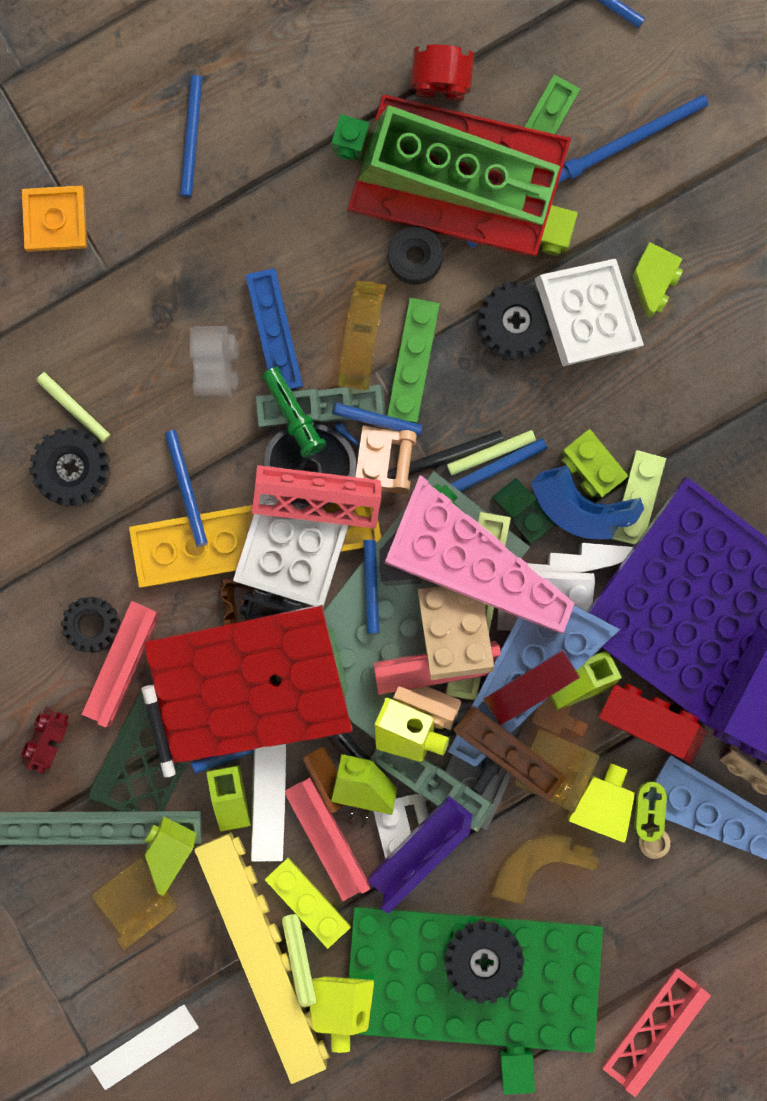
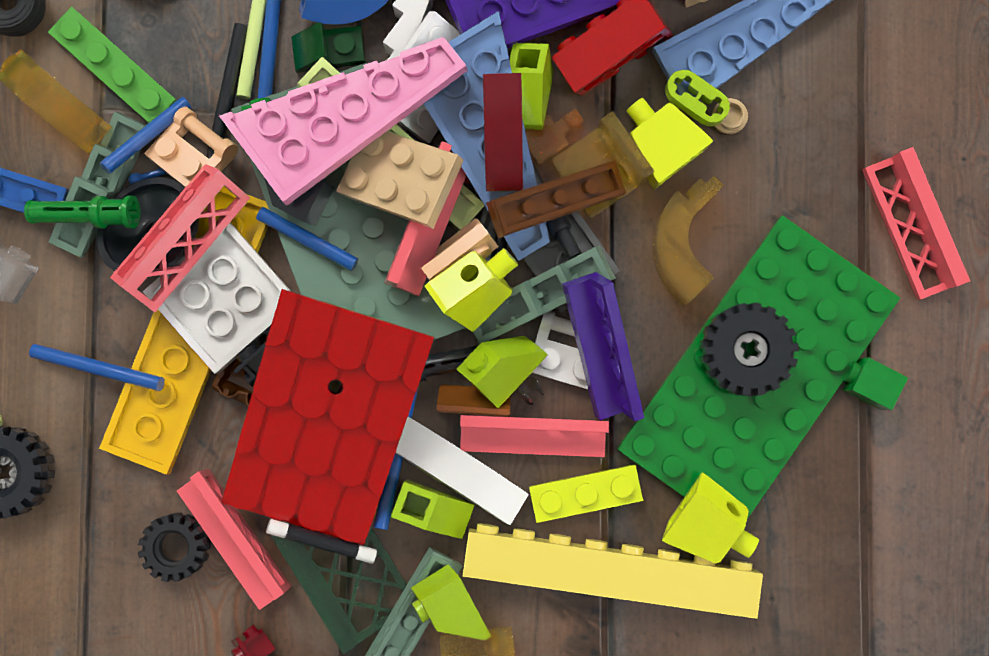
camera: 60 degrees left, 0 degrees up
(299, 960) = (638, 536): yellowish green axle -> none

